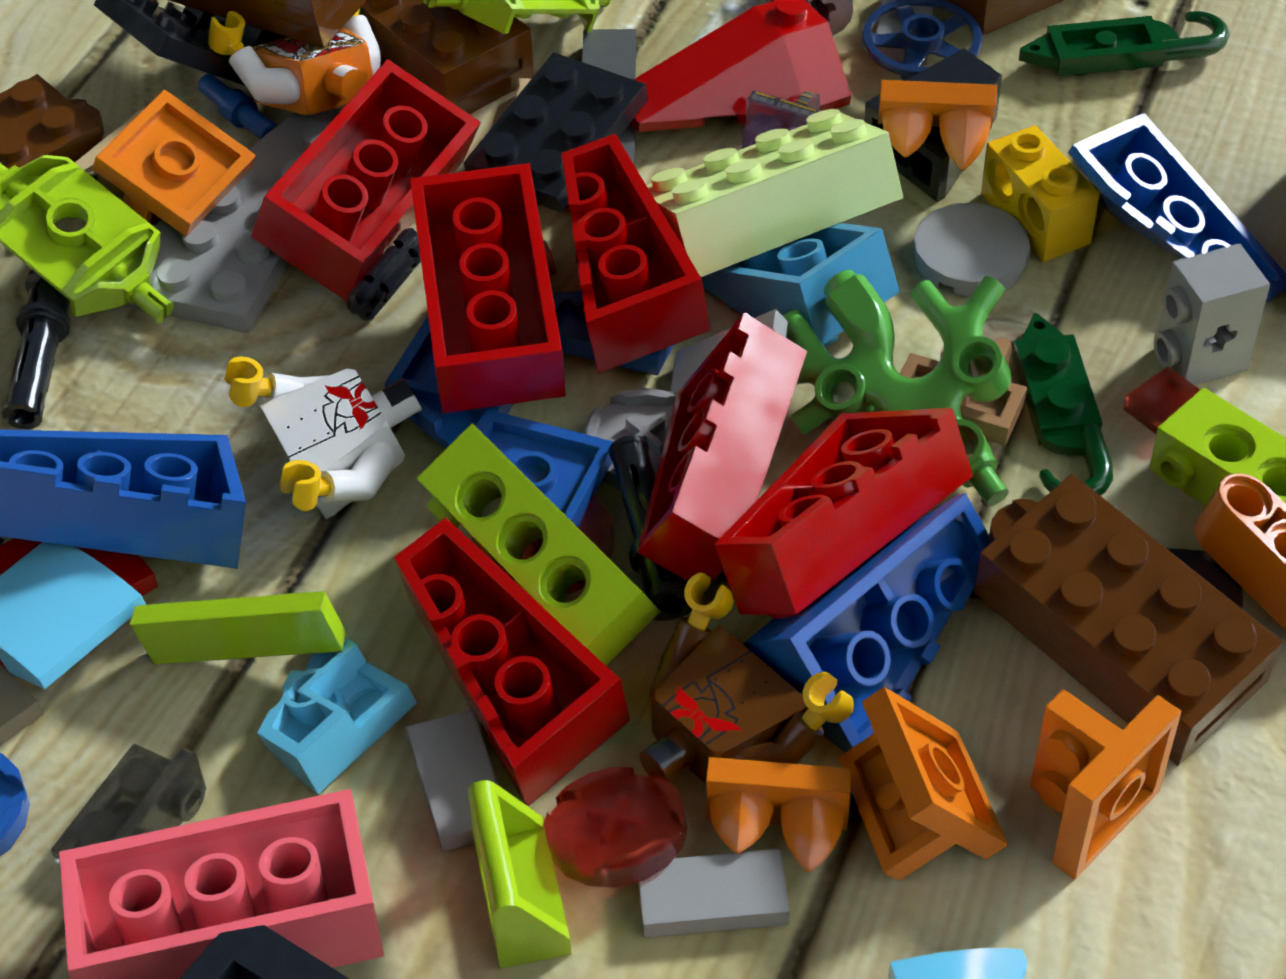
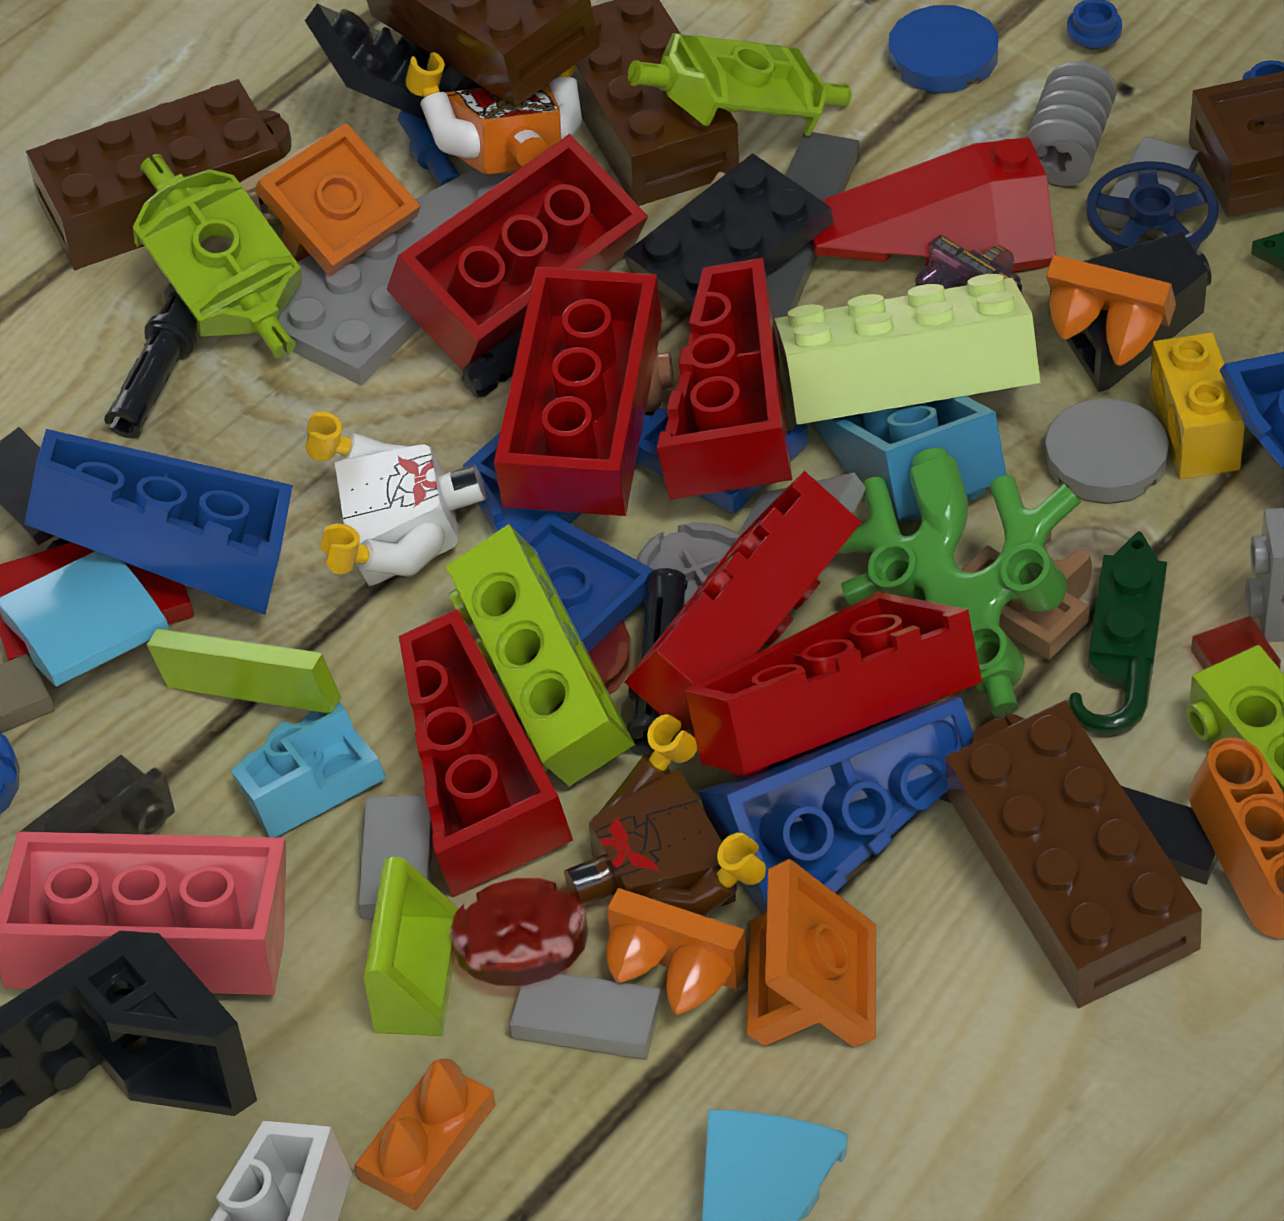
camera: 20 degrees right, 0 degrees up
(1098, 772) = (977, 996): orange bracket -> none

